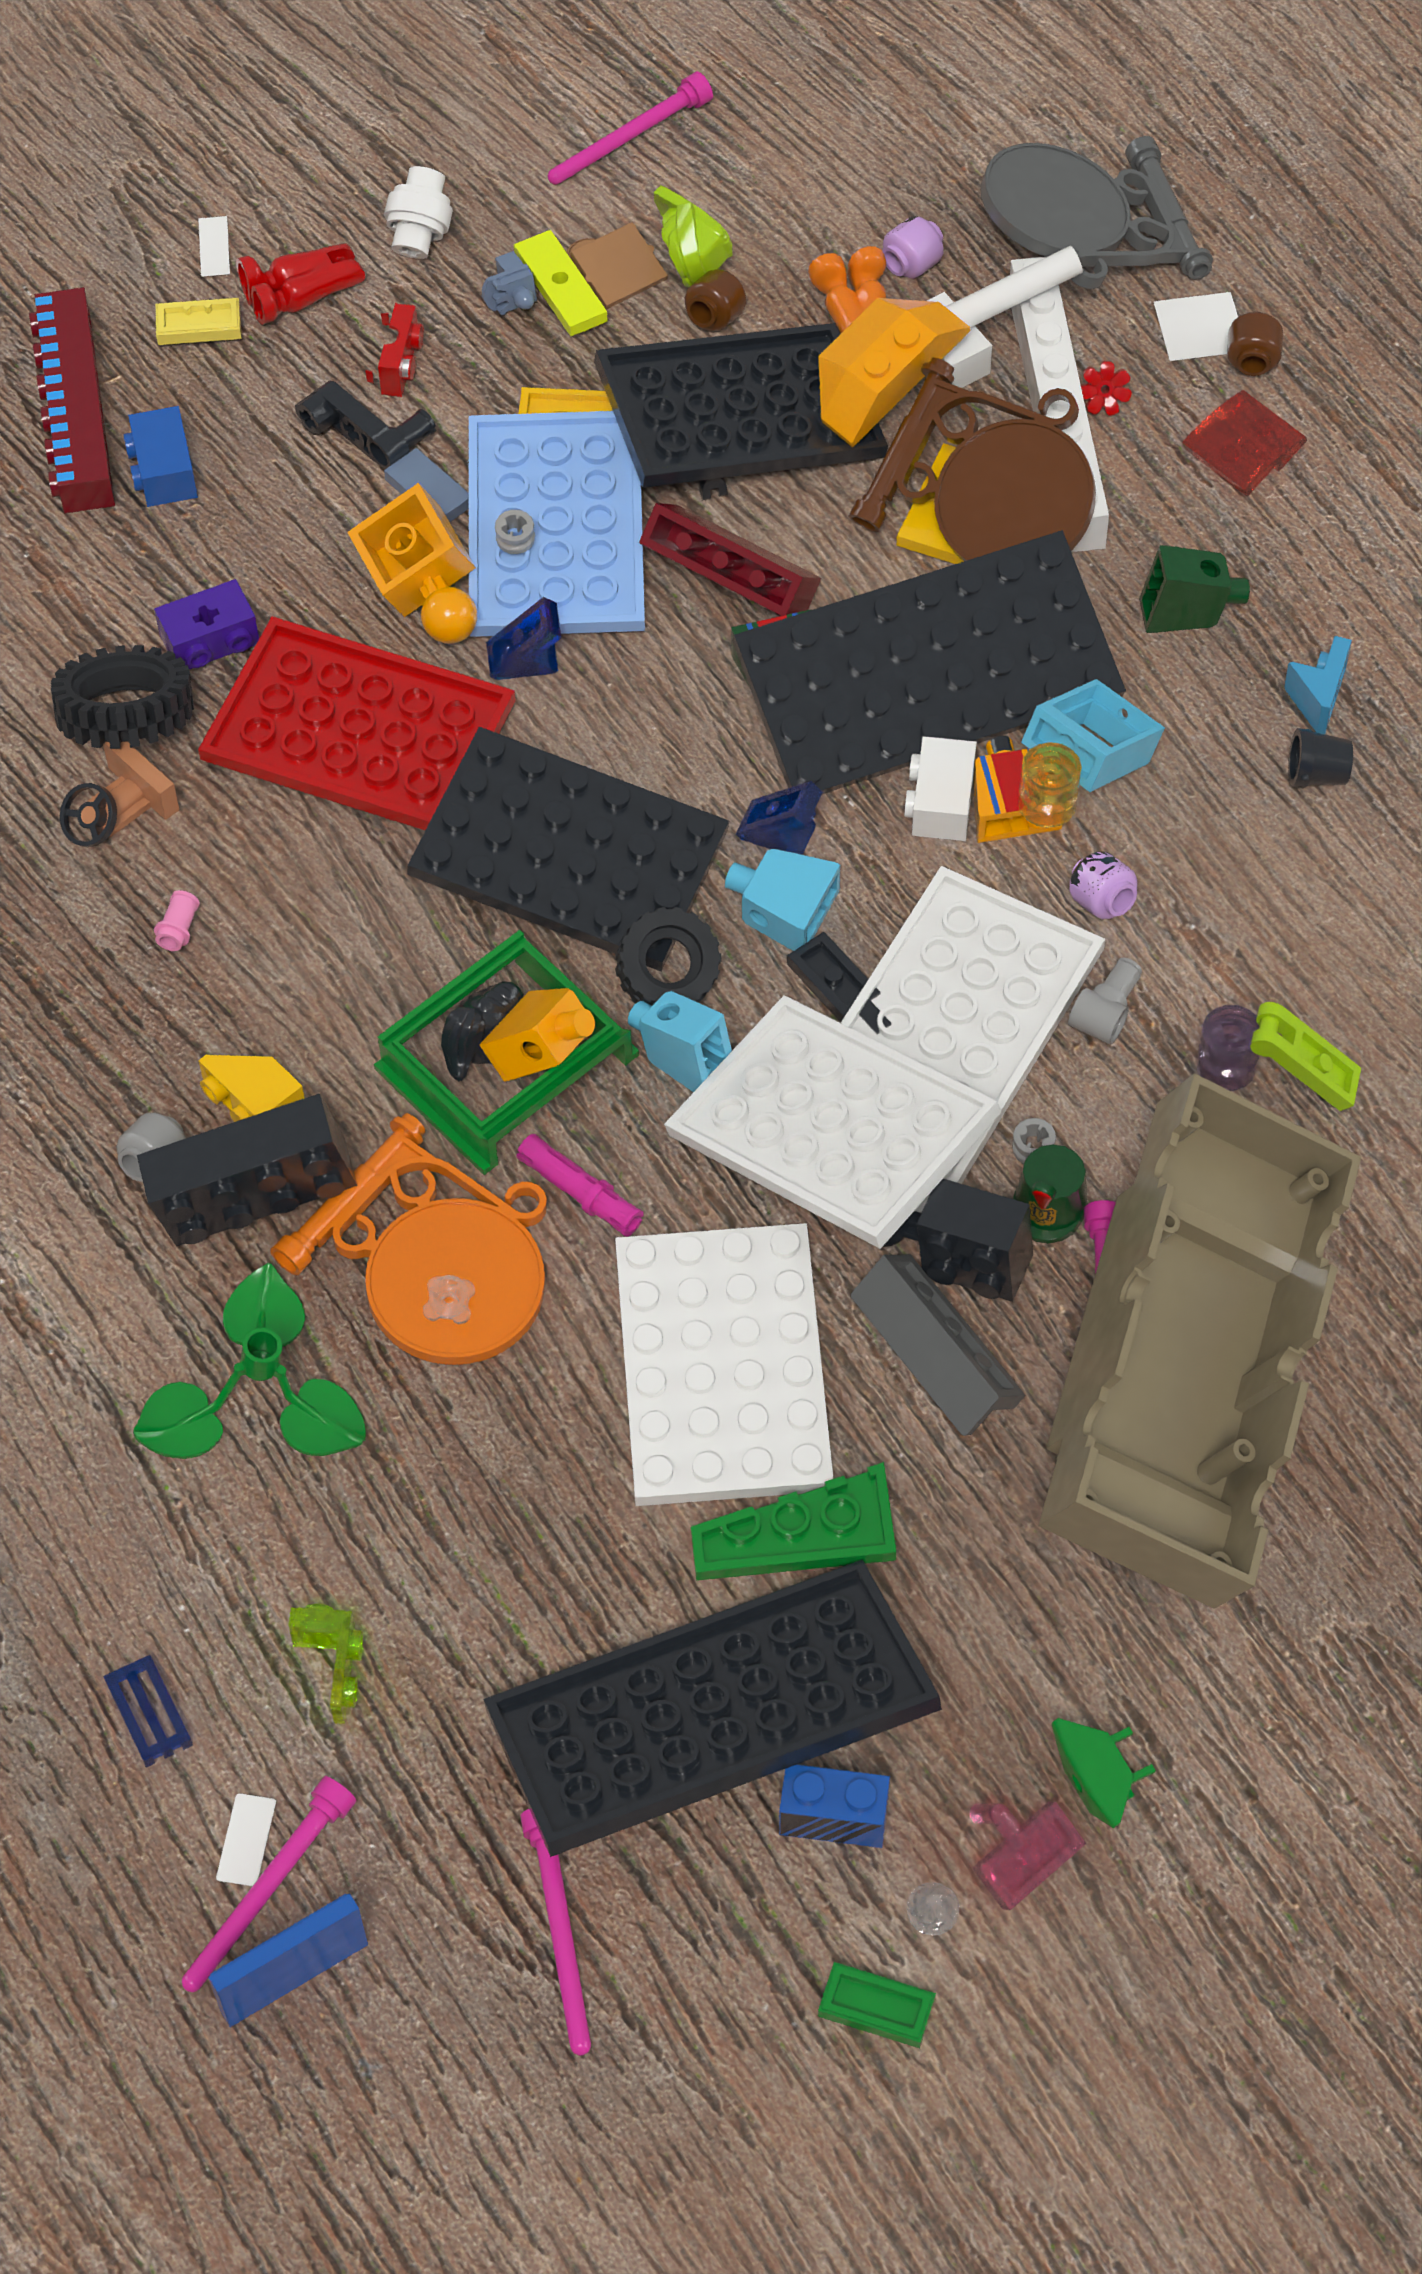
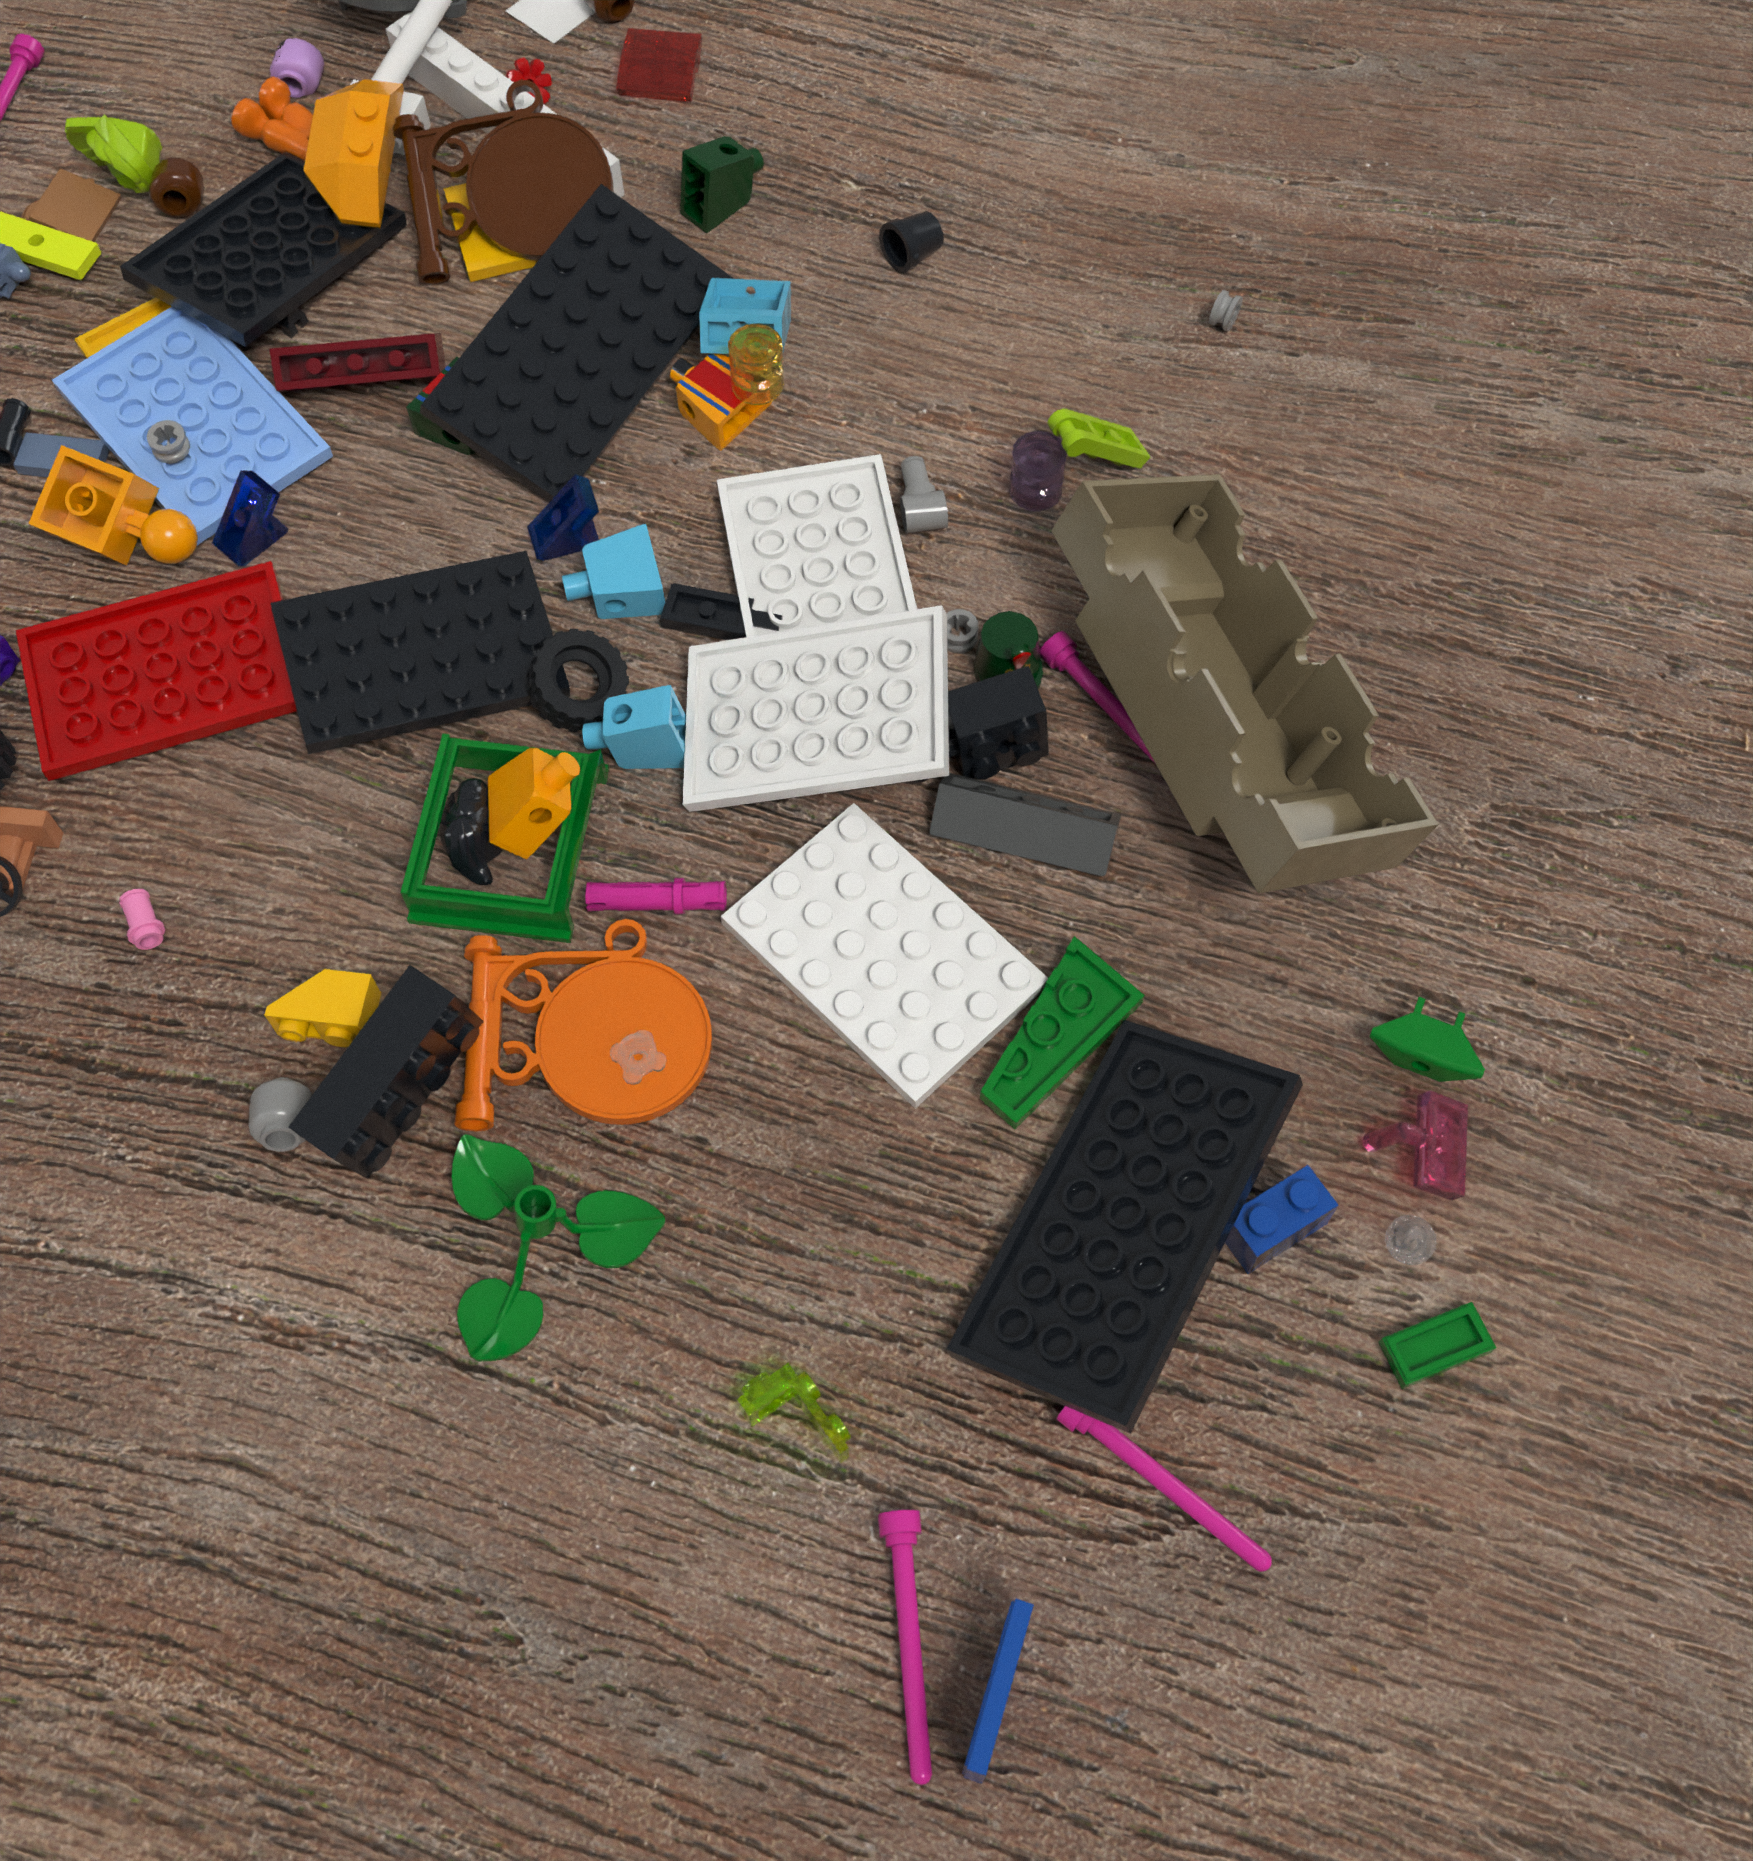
camera: 40 degrees left, 5 degrees up
(164, 1745) = (723, 1595): clear blue tile -> none
(246, 1839) = (855, 1616): white sticker -> none
(942, 789) = (666, 425): white brick -> none
(1103, 885) = (844, 418): lavender head -> none
(1317, 687) = (864, 192): dark azure slope -> none

